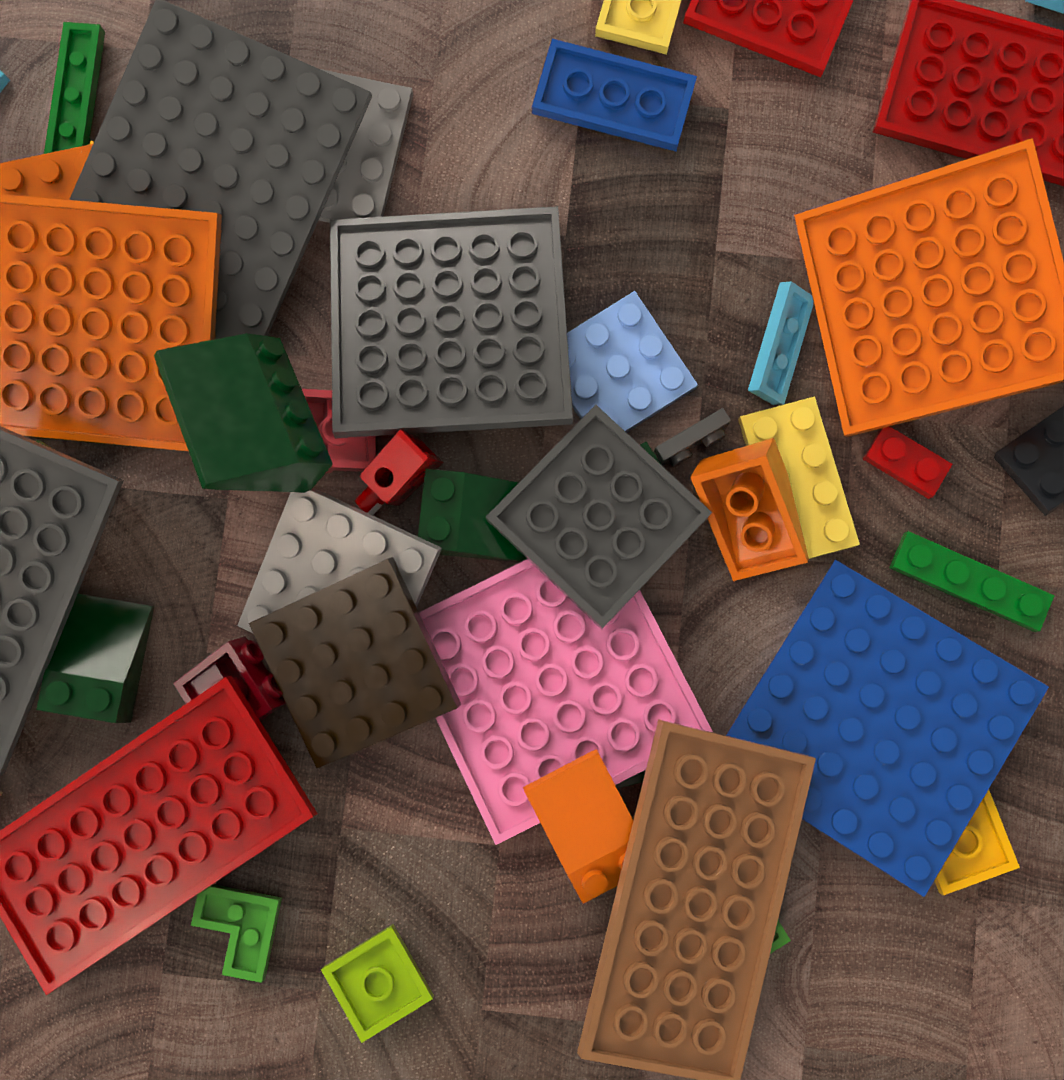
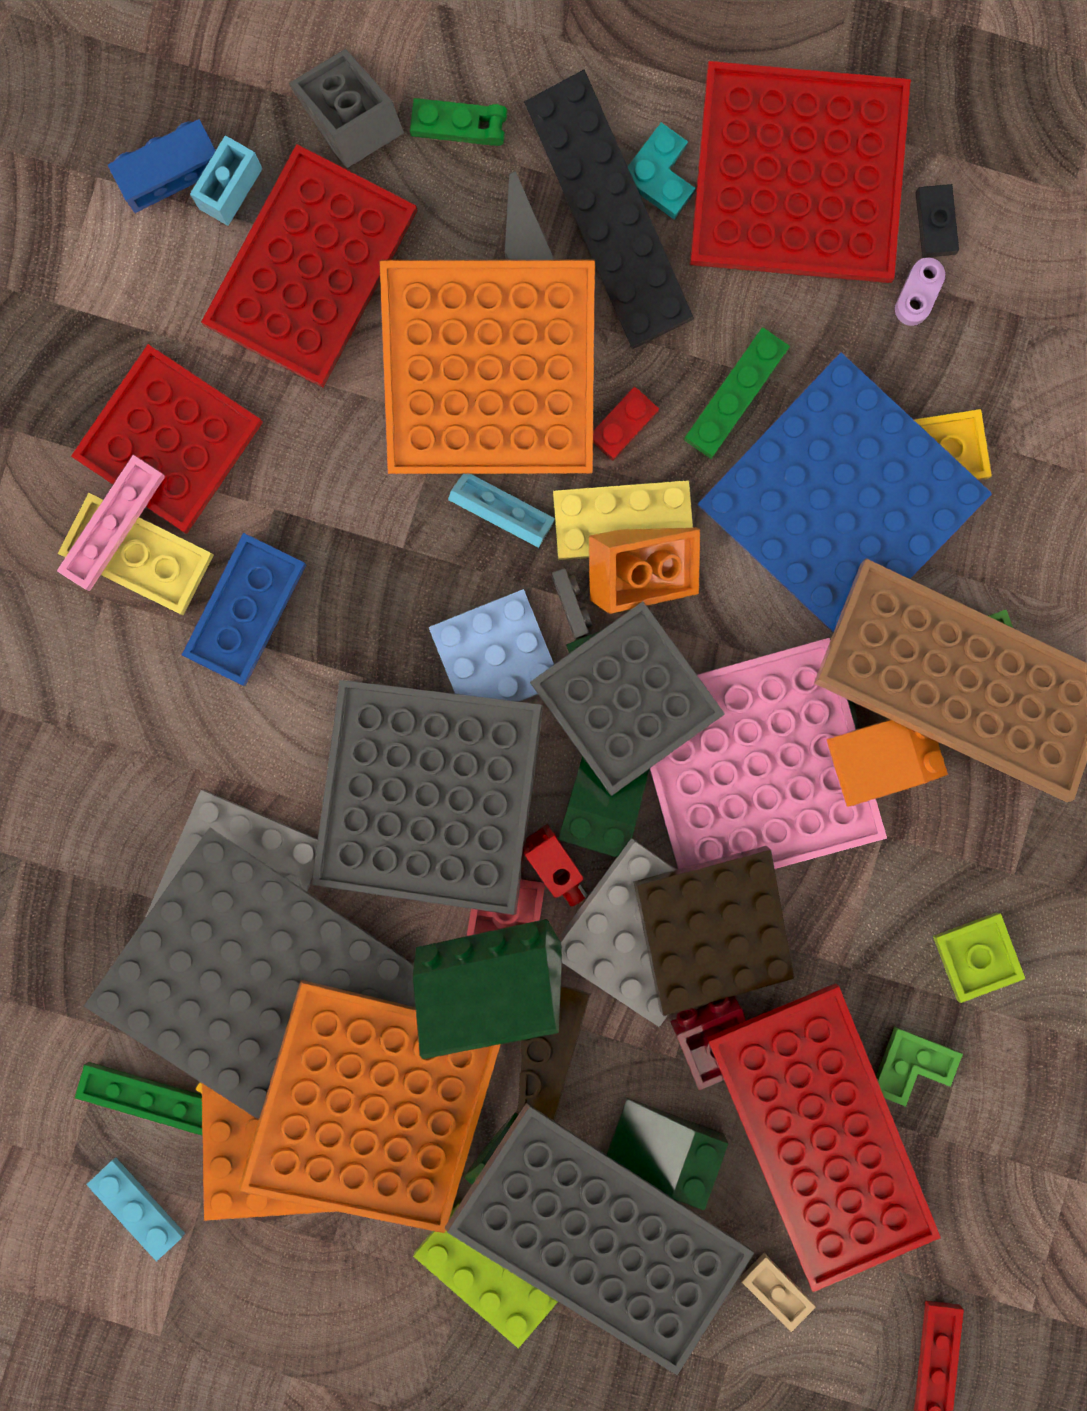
camera: 85 degrees left, 5 degrees up
(190, 511) = (549, 1057): none -> dark brown wing

